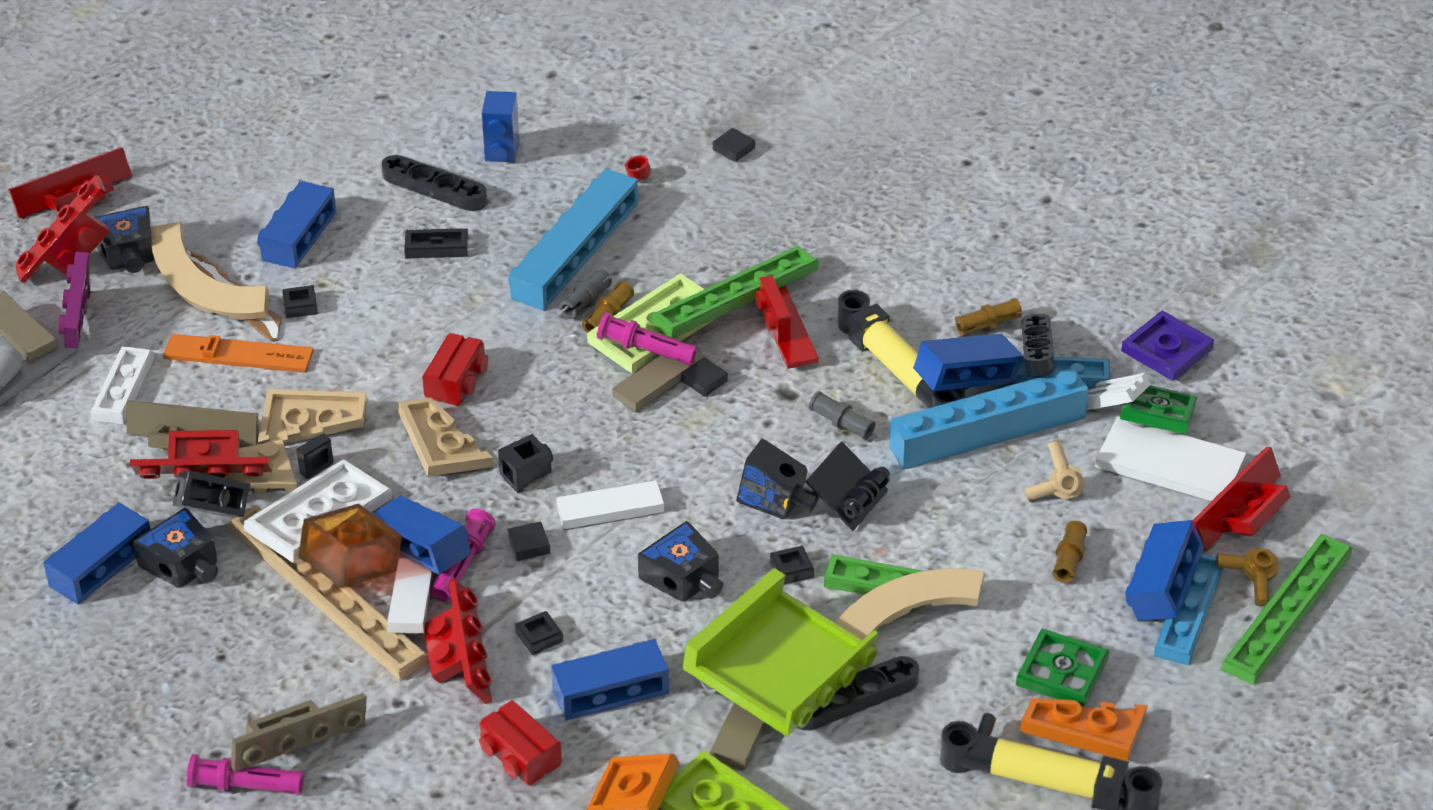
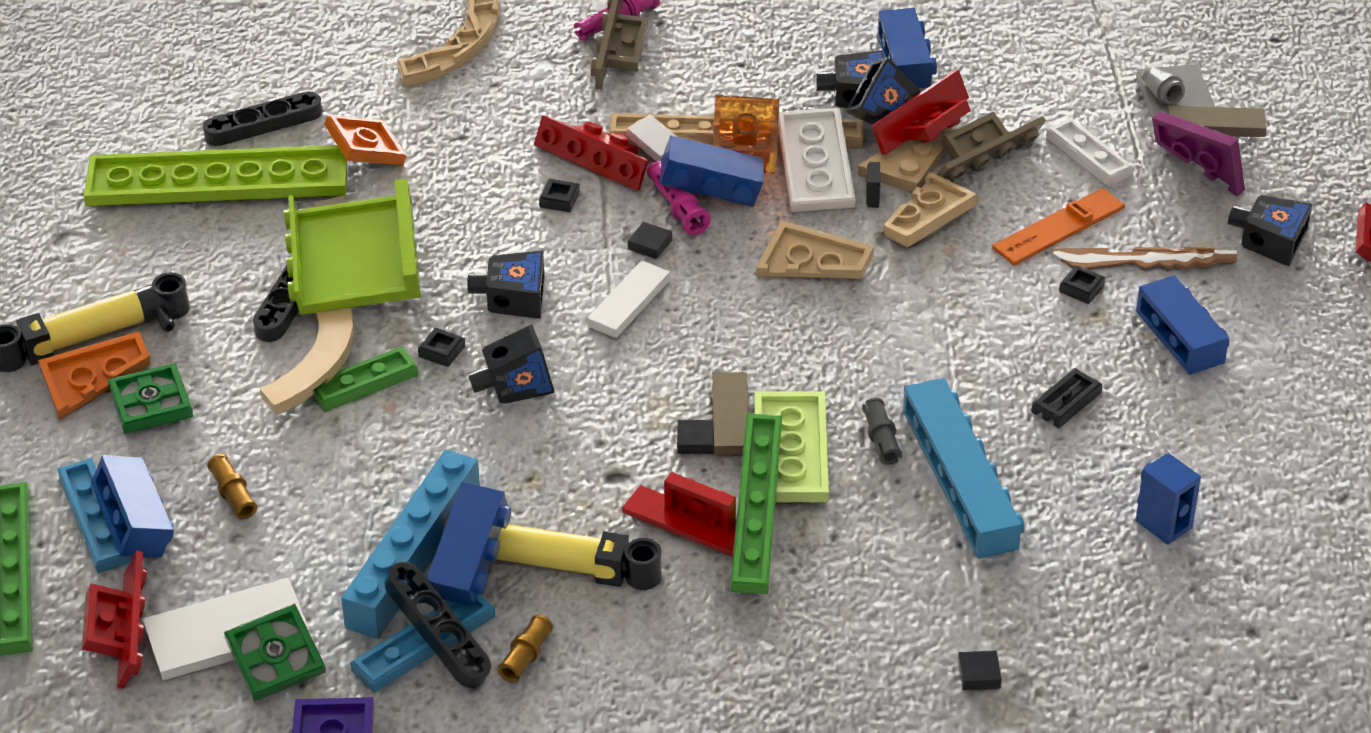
camera: 135 degrees right, 0 degrees up
(70, 233) = (1280, 177): red bracket -> none
(199, 288) = (1130, 239): tan tile -> none
(455, 369) = (879, 302): red brick -> none
(464, 194) = (1115, 453): black beam -> none
(519, 743) = (472, 121): red brick -> none
(524, 462) = (723, 281): black brick -> none
(610, 679) = (464, 188): blue brick -> none
(612, 303) = (845, 431): pearl gold pin -> none
(631, 335) = (776, 395): dark pink pin -> none
(638, 162) = (1015, 572): red hinge -> none
(842, 415) = (541, 473): dark grey pin -> none
(848, 485) = (458, 409): black hinge -> none
(1065, 480) = (292, 536): tan piece -> none
(1117, 391) = (323, 631): white tile -> none
(1258, 565) = (61, 572): pearl gold piece -> none

